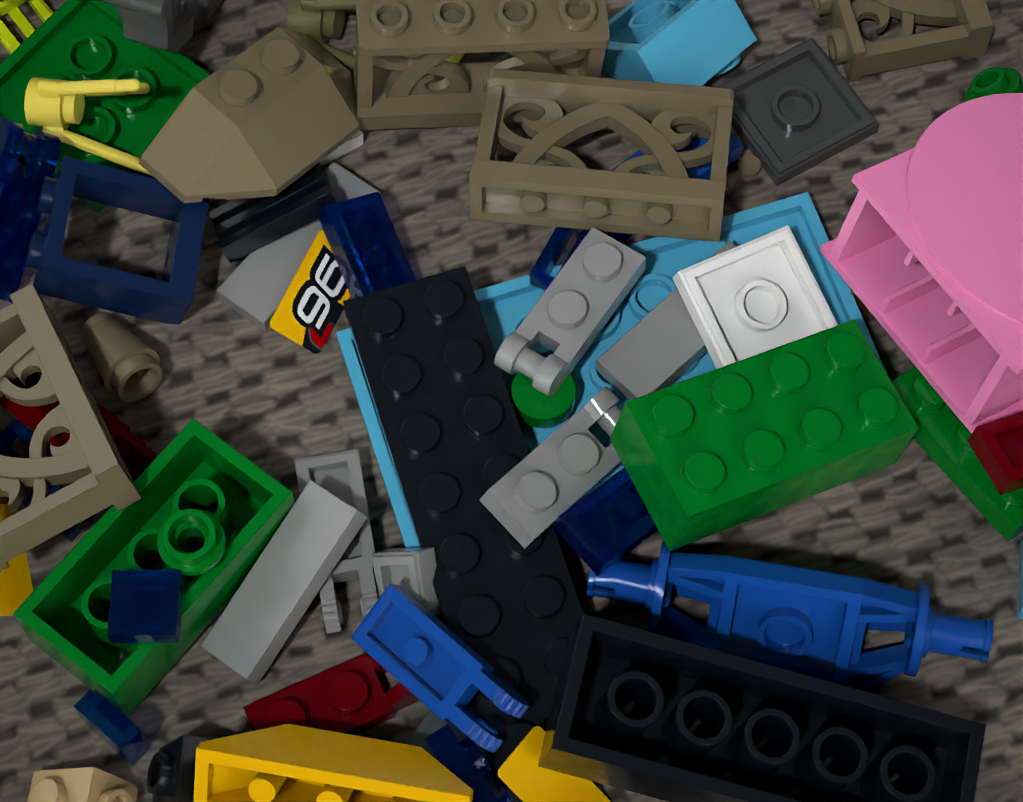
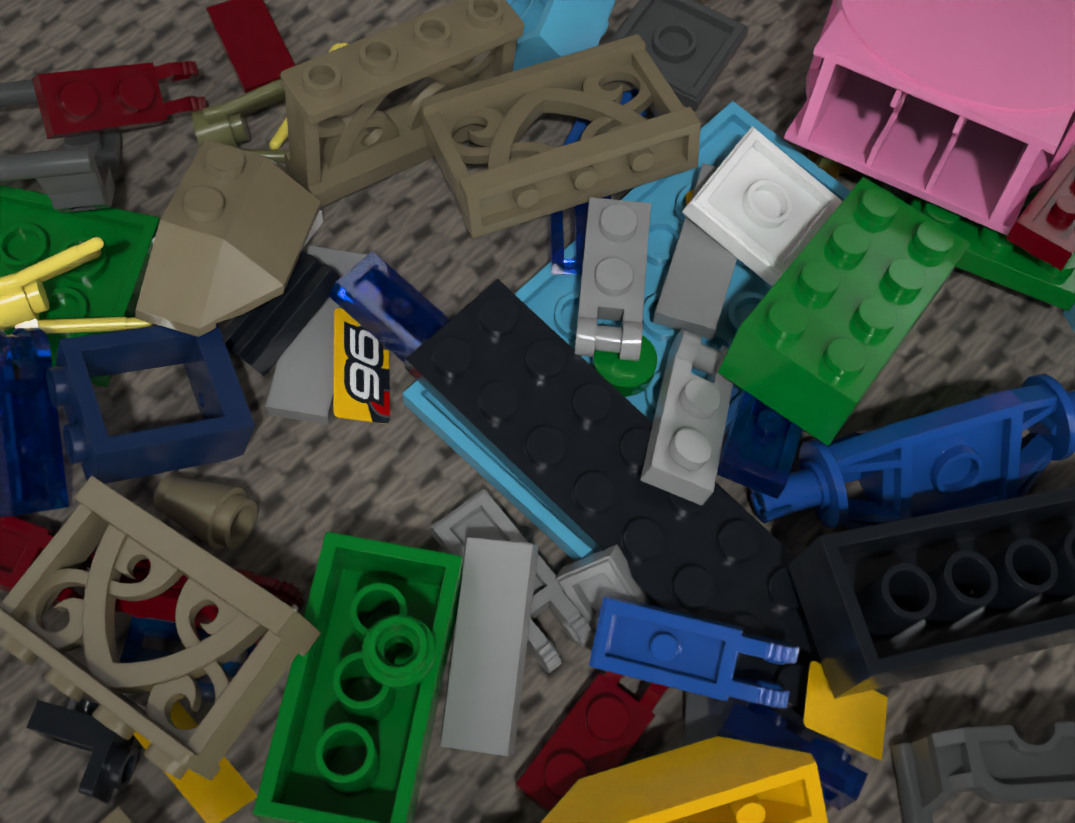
camera: 35 degrees left, 0 degrees up
(145, 606) = (389, 737): clear blue tile -> none

